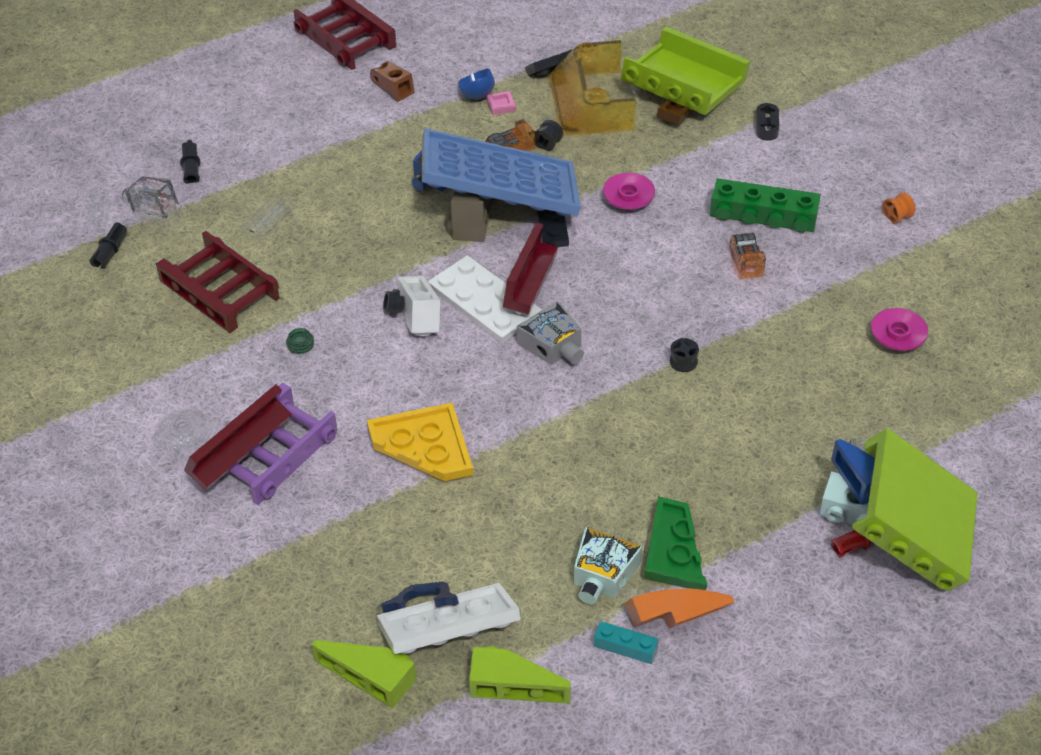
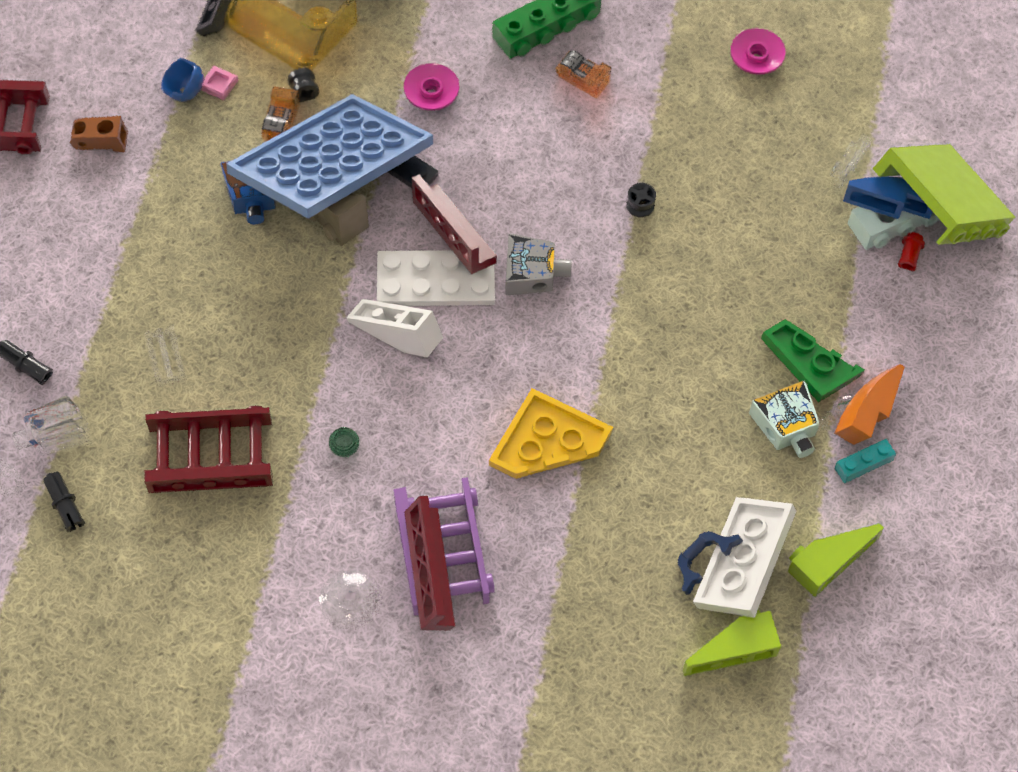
camera: 50 degrees left, 15 degrees up
(393, 302) = (376, 343): black plate -> none

